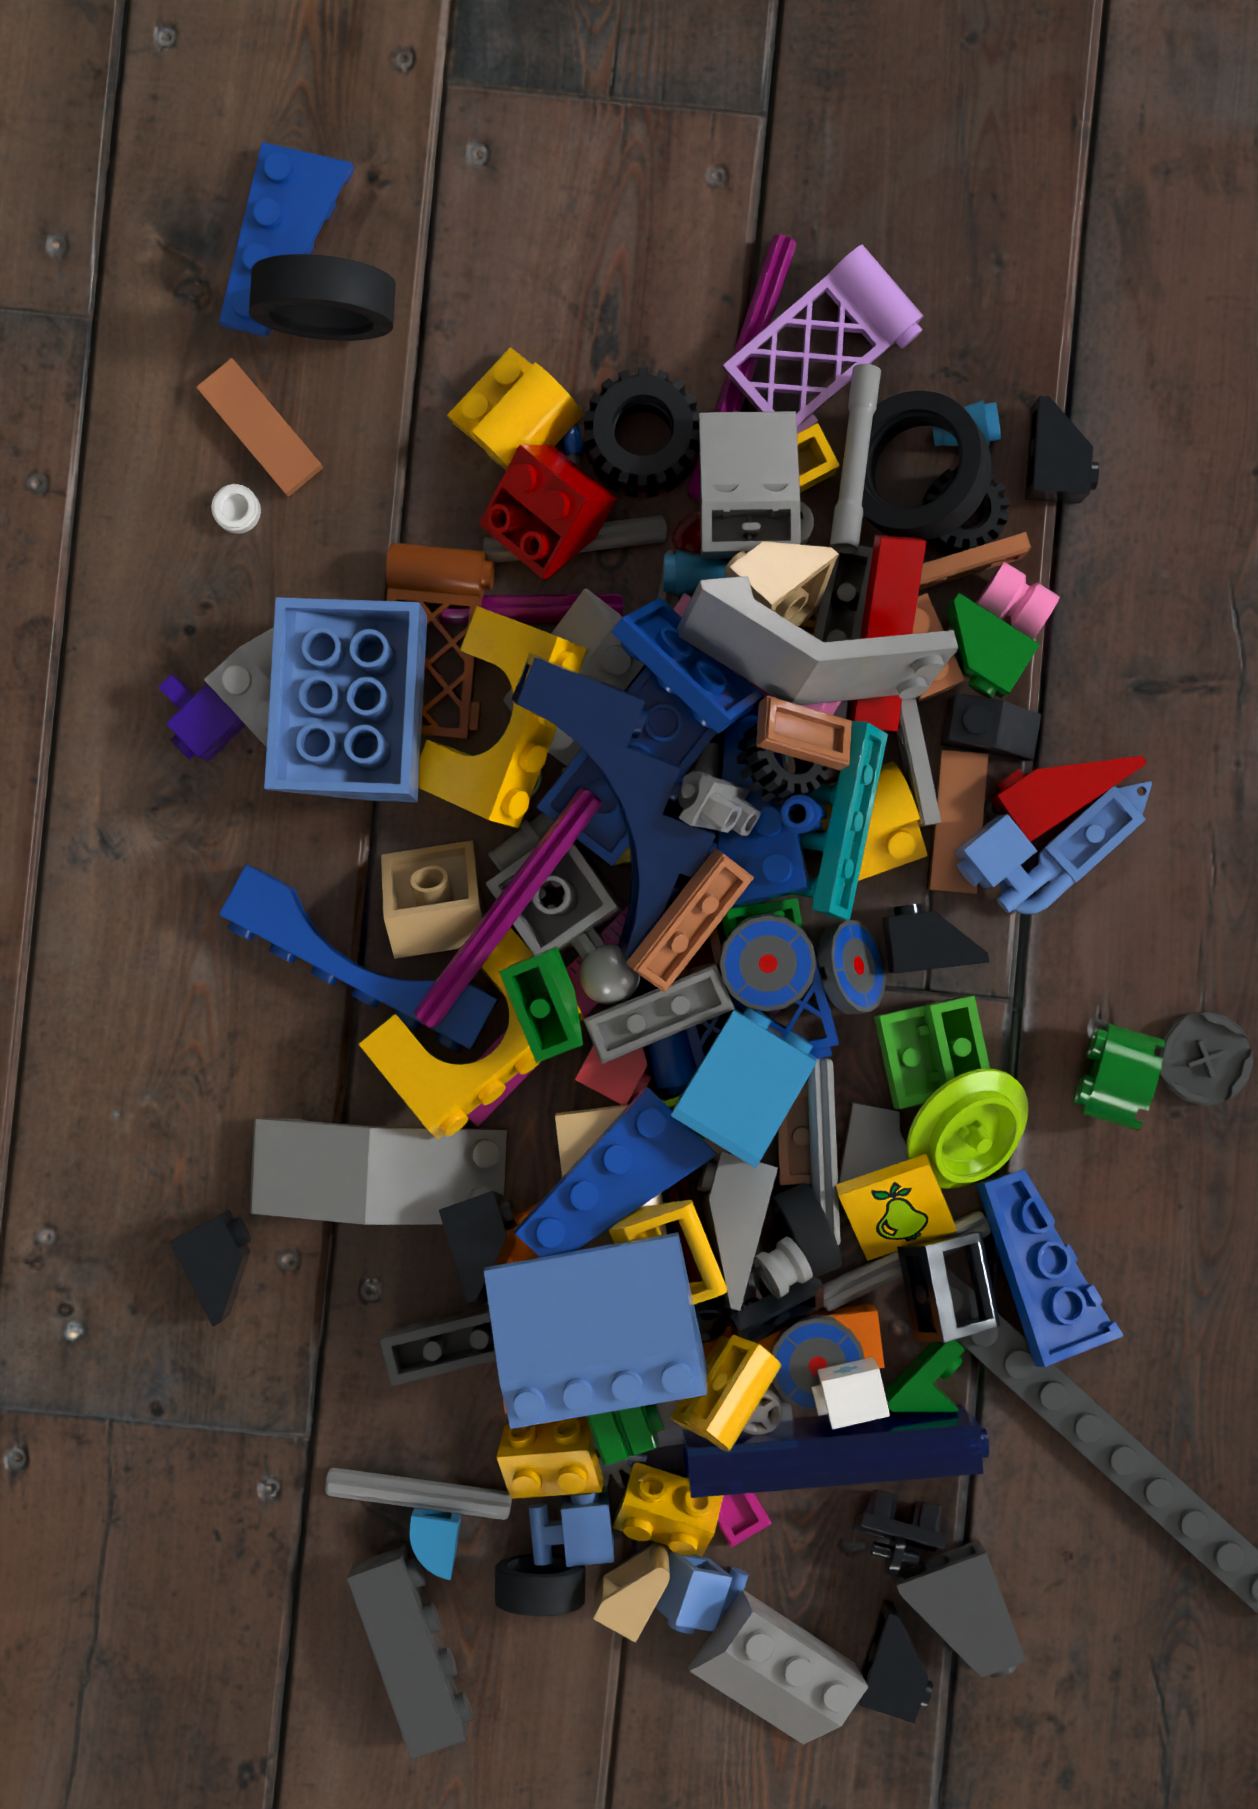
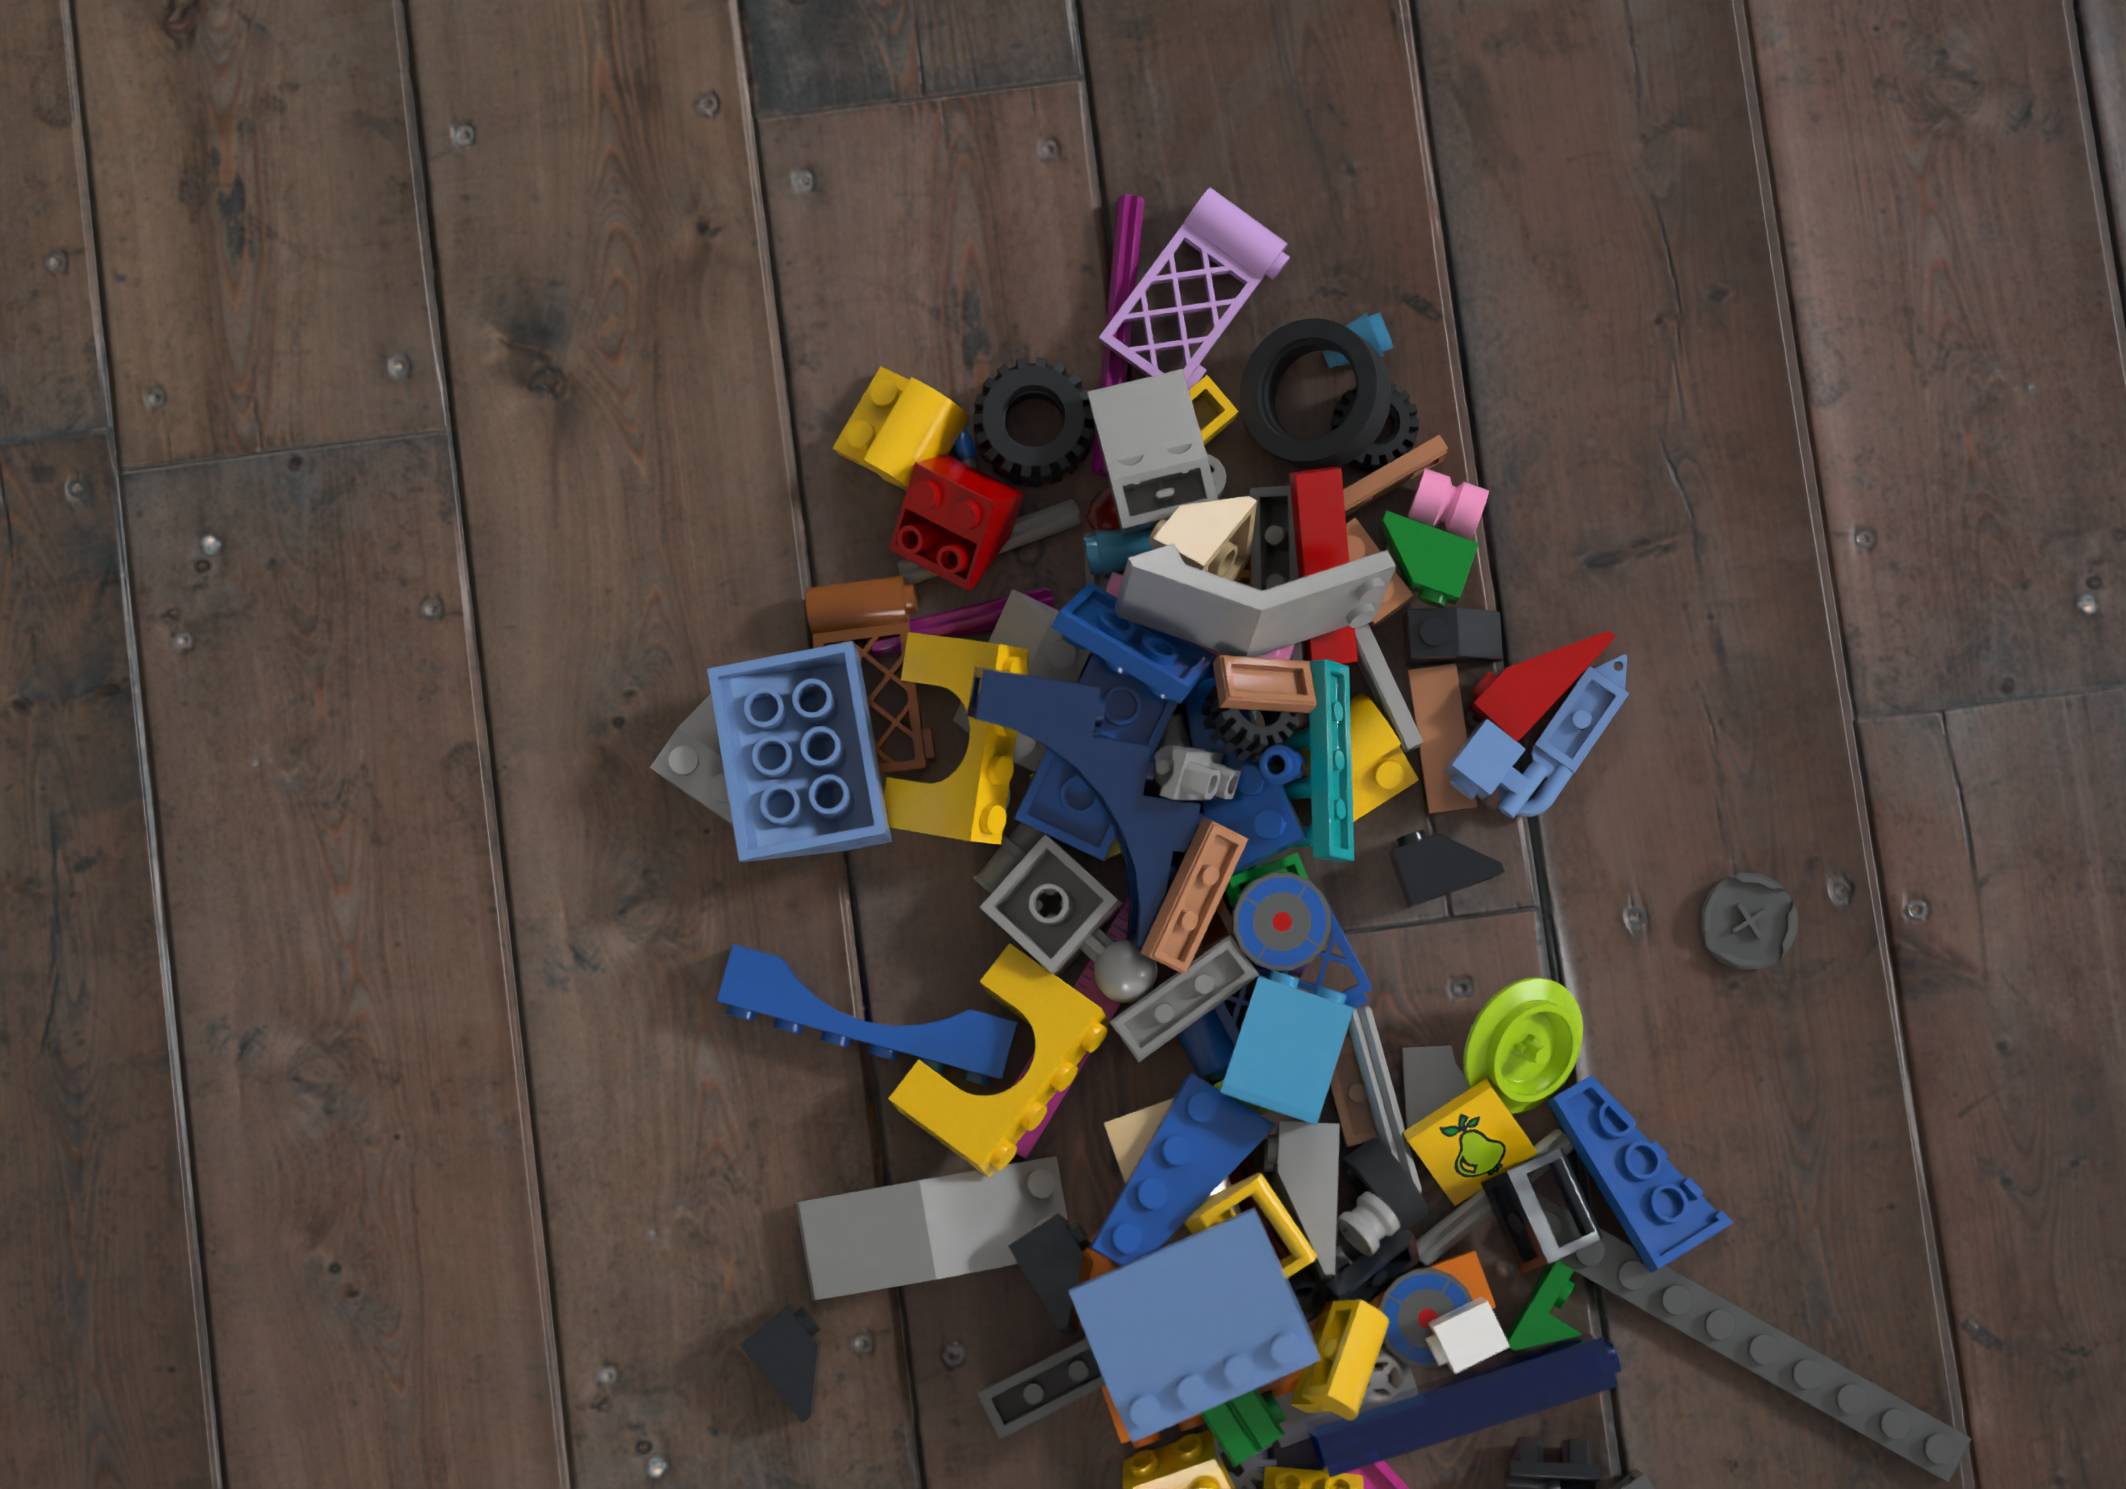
camera: 10 degrees left, 5 degrees down
(202, 722) = (655, 809): dark purple brick -> none
(236, 508) = (639, 589): white tile -> none
(259, 427) = (645, 502): nougat tile -> none
(283, 216) = (622, 296): blue wing -> none
(322, 297) = (686, 362): black tyre -> none
(431, 898) = (928, 937): tan slope -> none
(508, 907) = (1008, 926): magenta axle -> none
(544, 1003) = (1068, 1011): green slope -> none
(616, 1078) = (1157, 1074): coral slope -> none
(849, 509) = (1257, 452): light grey piece -> none
(852, 967) = (1369, 908): dark grey tile -> none
(930, 1047) = (1465, 971): bright green brick -> none
(1058, 457) = (1455, 352): black slope -> none
(1120, 1077) = (1664, 956): green brick -> none

